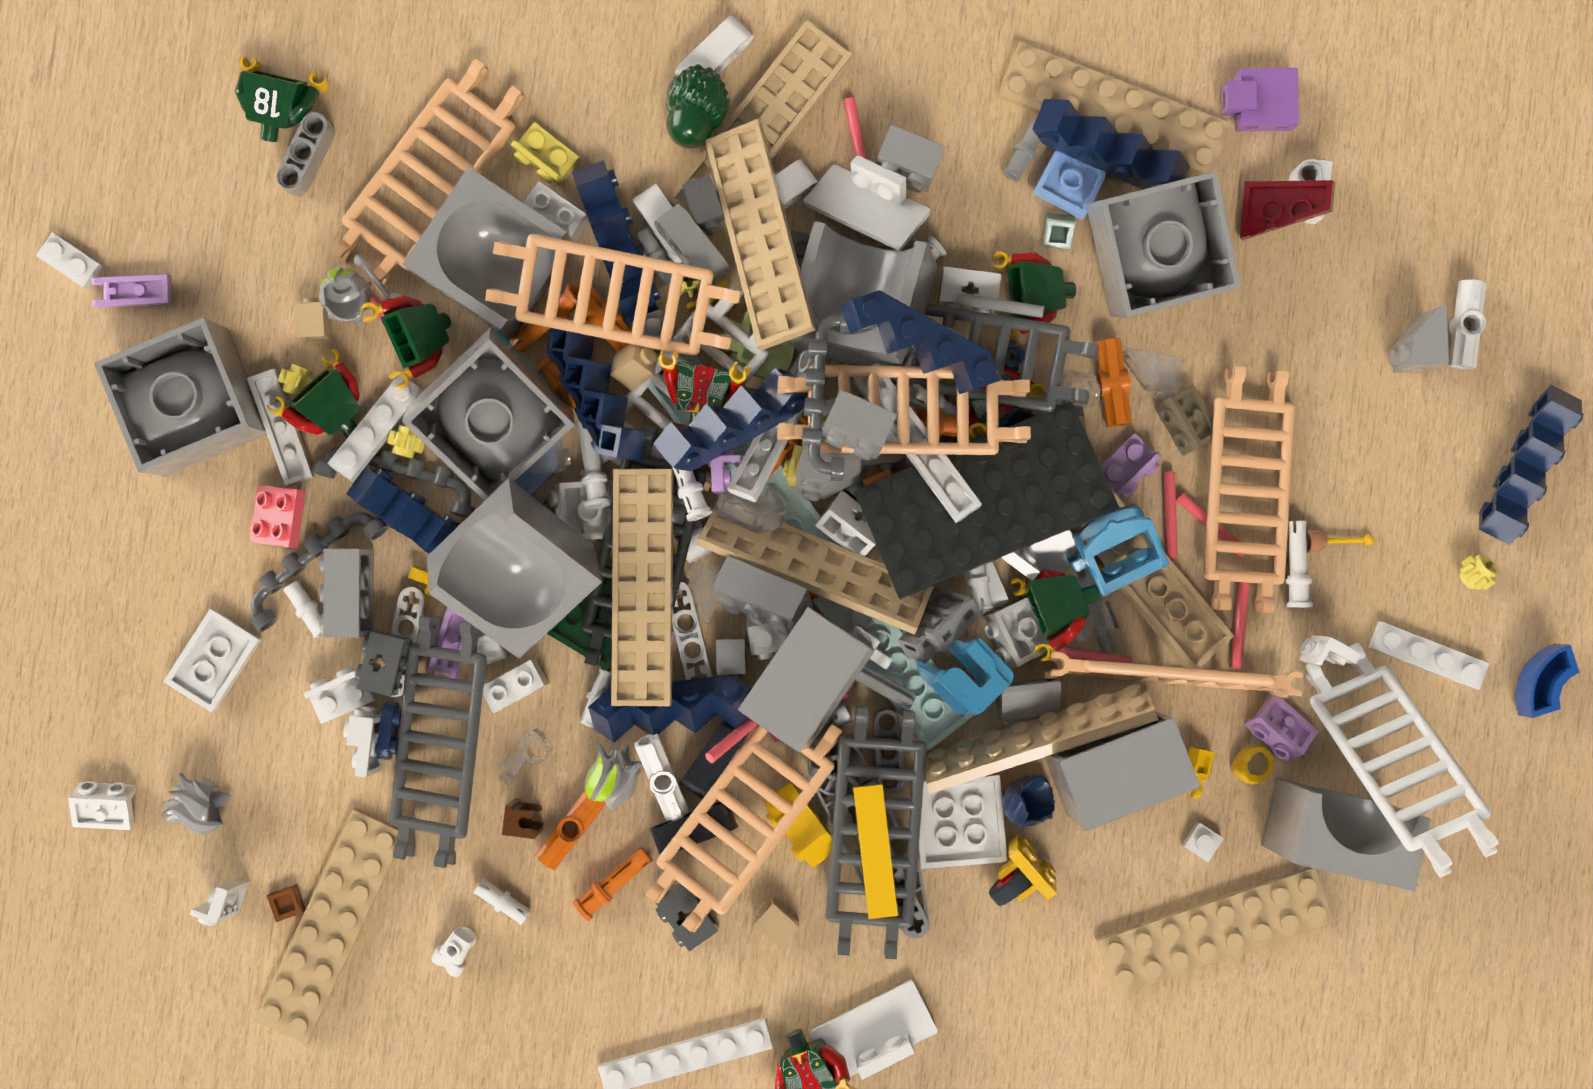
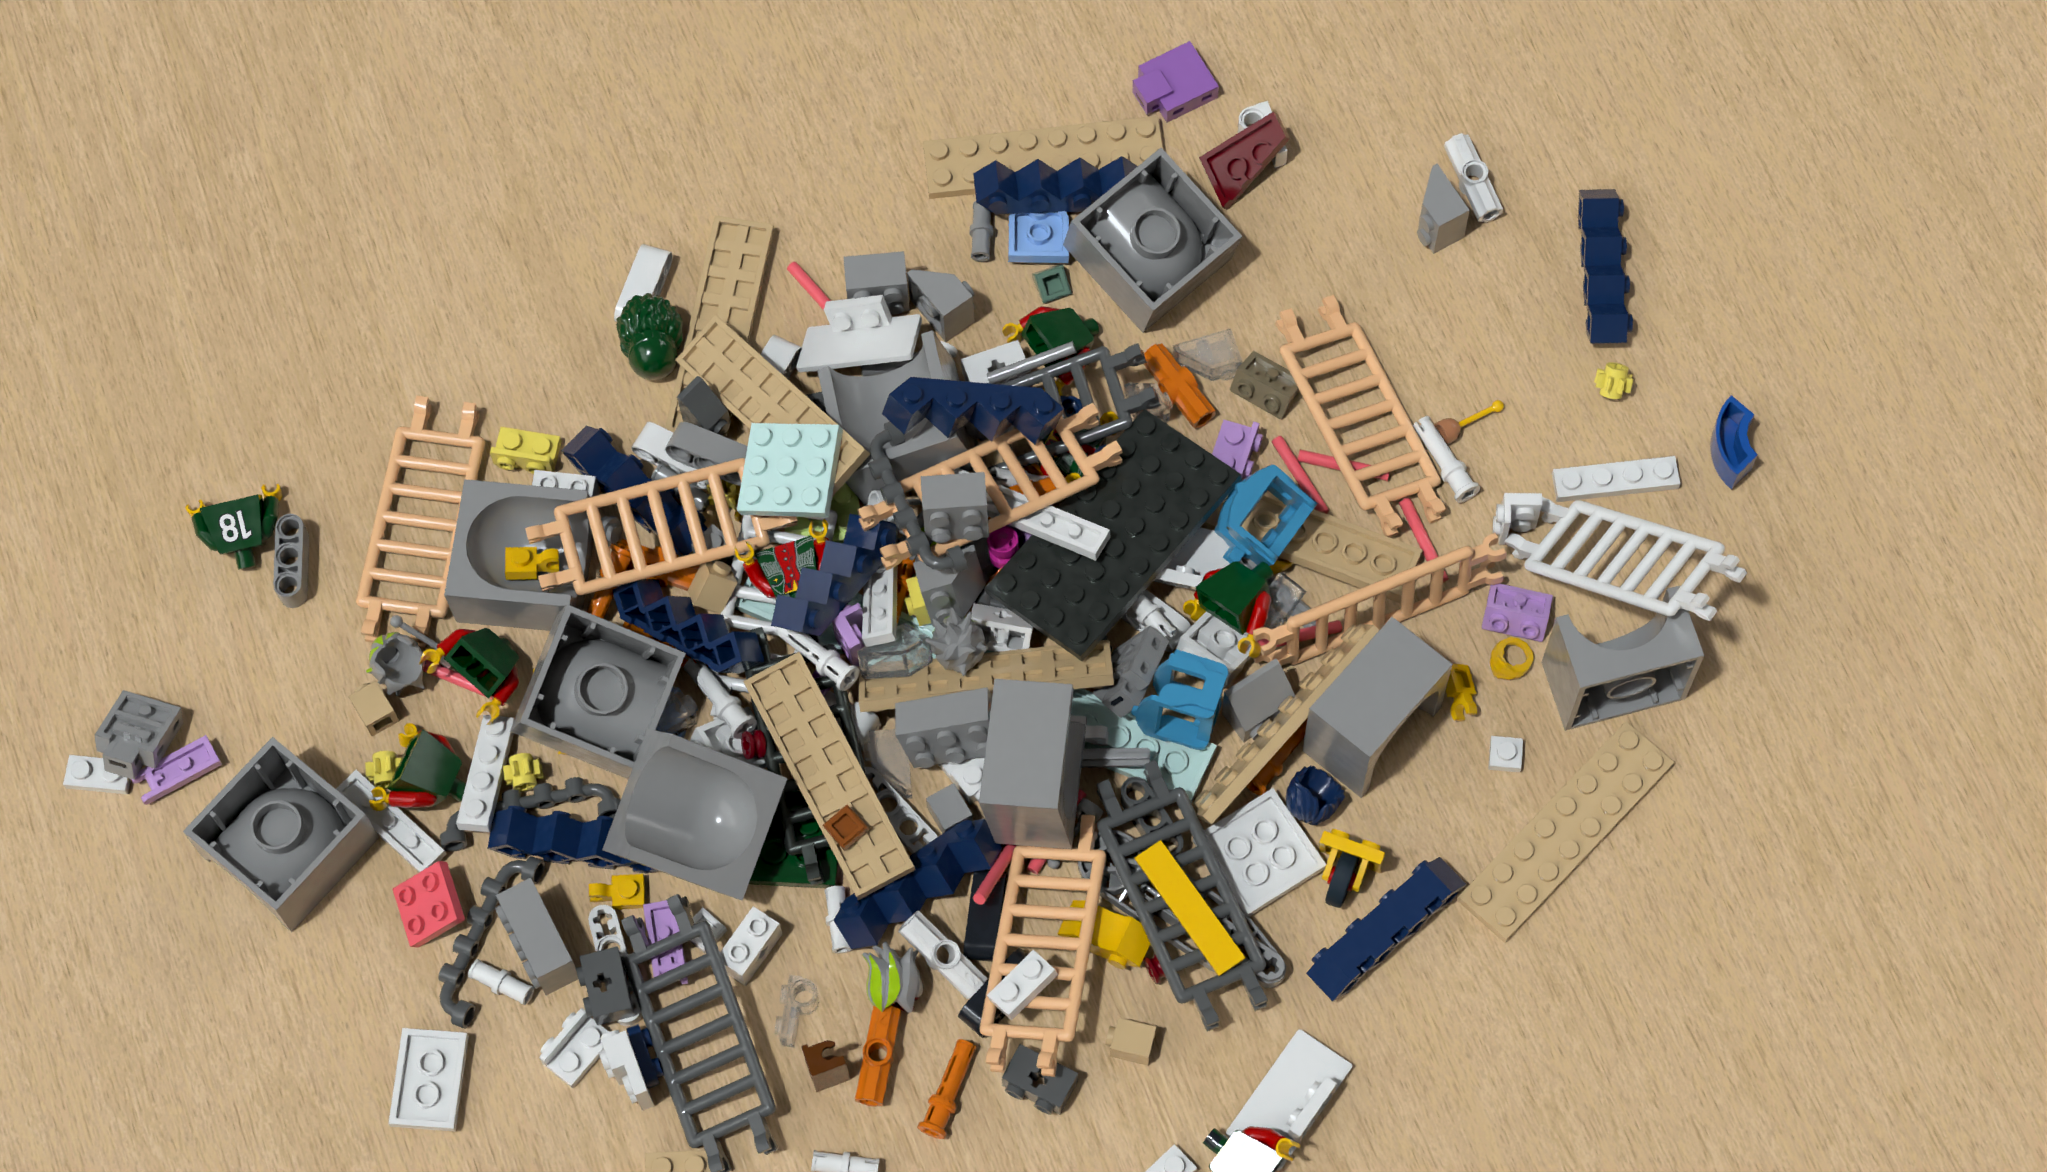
camera: 25 degrees left, 20 degrees down
(110, 244) = (136, 733): none -> light grey piece
(490, 265) = (525, 562): none -> yellow plate
(574, 265) = (612, 529): none -> light grey plate
(598, 522) = (753, 744): none -> dark red bush
(631, 644) = (845, 827): none -> dark orange tile
(707, 846) = (1022, 985): none -> white plate
(741, 307) = (790, 470): none -> light aqua plate
(806, 528) = (957, 642): none -> light grey hair
(824, 873) = (1154, 969): none -> dark red bush
(894, 460) = (1002, 545): none -> dark pink wheel
(956, 204) = (942, 301): none -> light grey slope
(1038, 937) = (1381, 931): none -> dark blue brick

